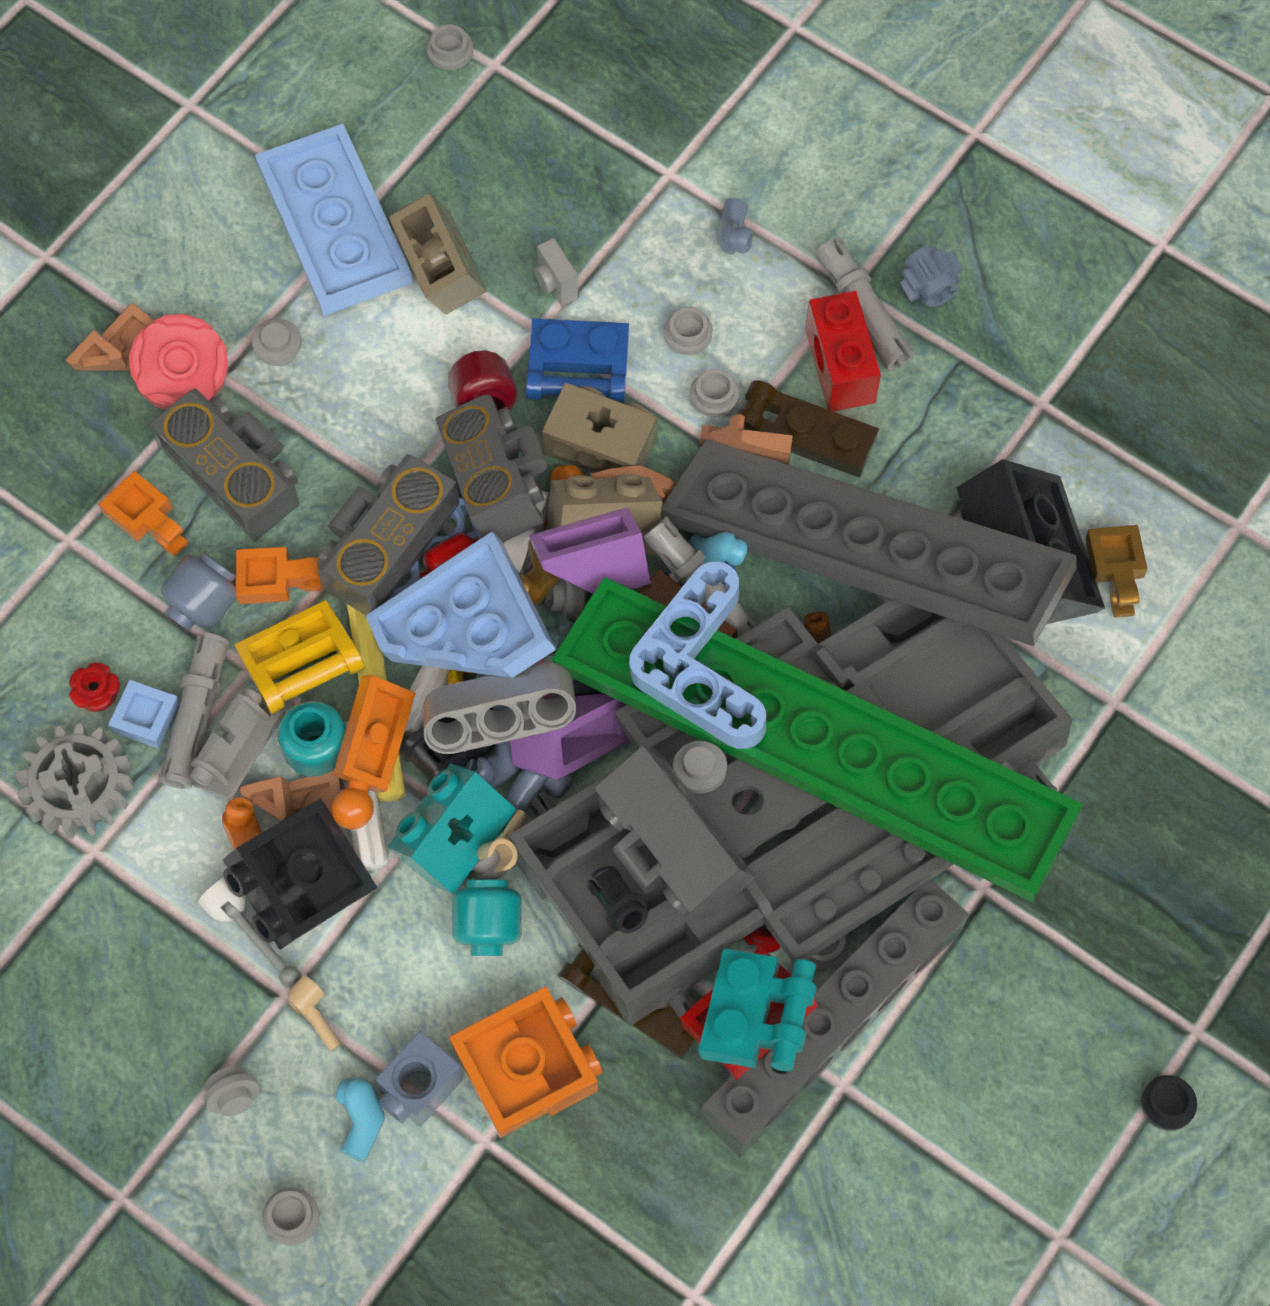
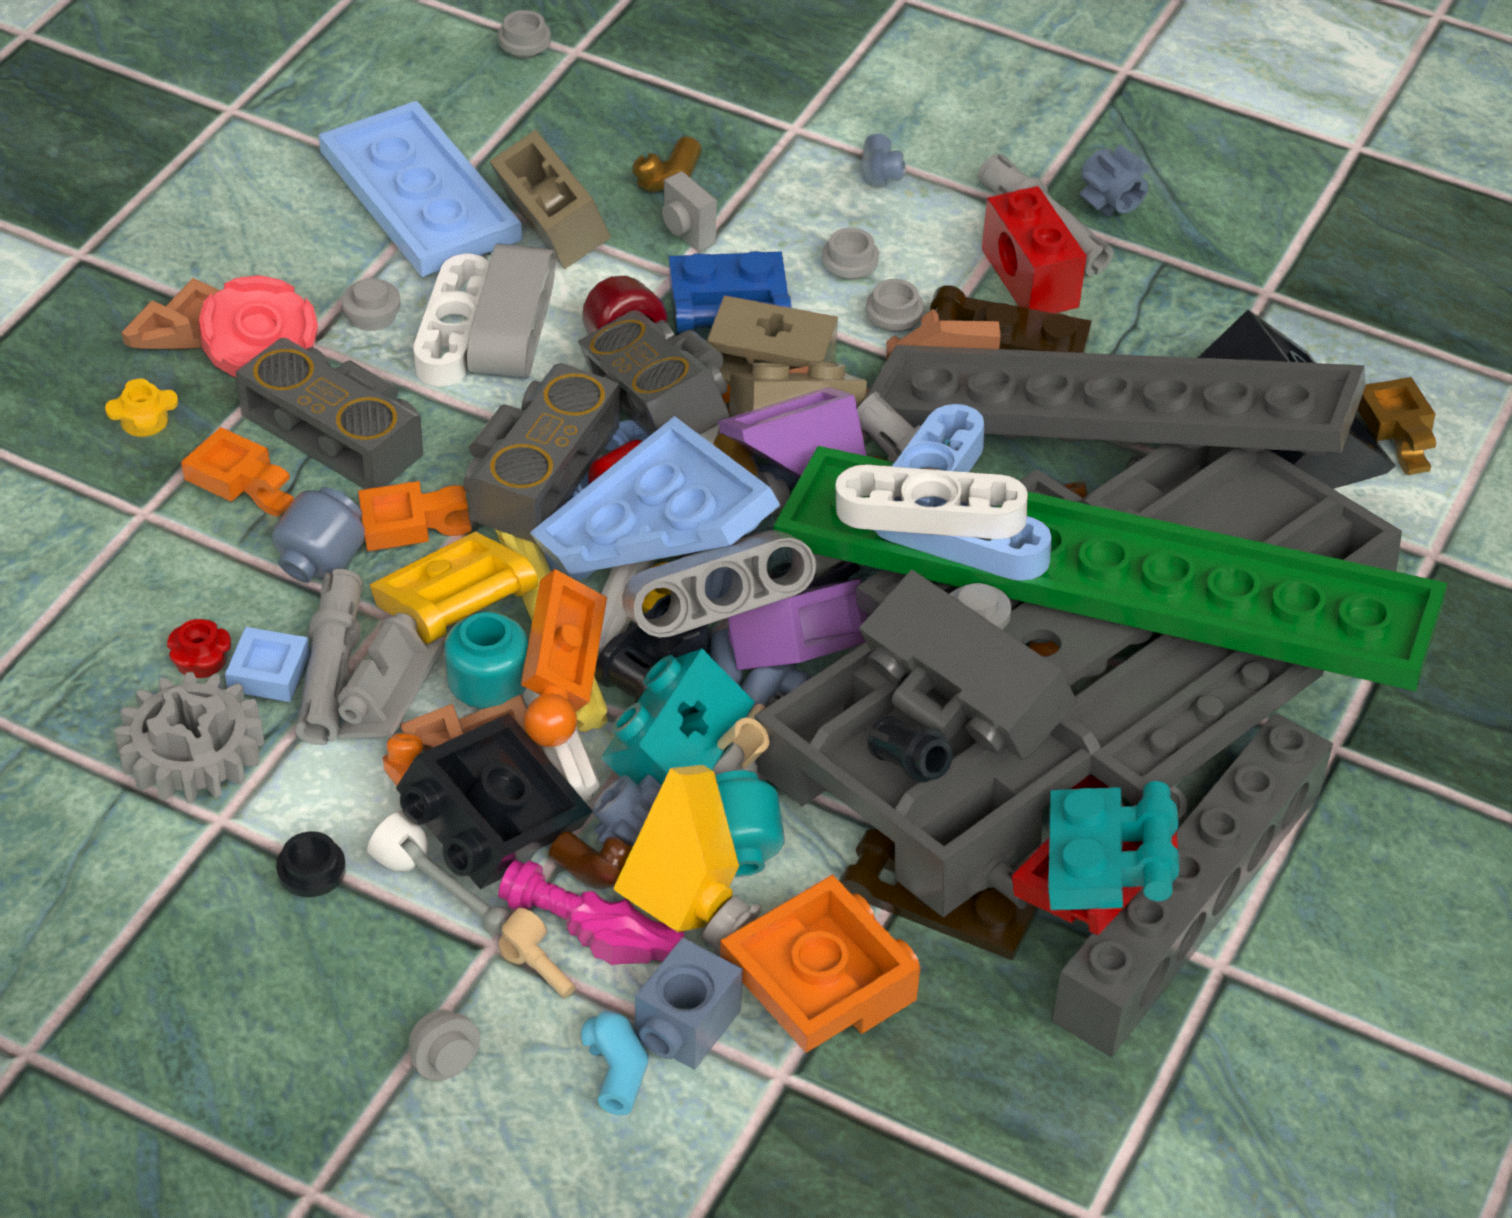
camera: 10 degrees left, 20 degrees down
(77, 447) = (142, 408): none -> yellow plate
(154, 910) = (310, 864): none -> black plate
(290, 1216) = (545, 1178): light grey plate -> none
(347, 386) = (433, 333): none -> white beam
(374, 941) = (588, 865): none -> reddish brown arm
(374, 994) = (610, 929): none -> dark pink piece
(390, 366) = (511, 310): none -> light grey beam
(406, 902) = (625, 808): none -> sand blue gear
(434, 953) = (683, 853): none -> yellow slope
(467, 1010) = (729, 918): none -> light grey plate
(544, 222) = (653, 172): none -> pearl gold arm
(714, 668) = (951, 519): none -> white beam

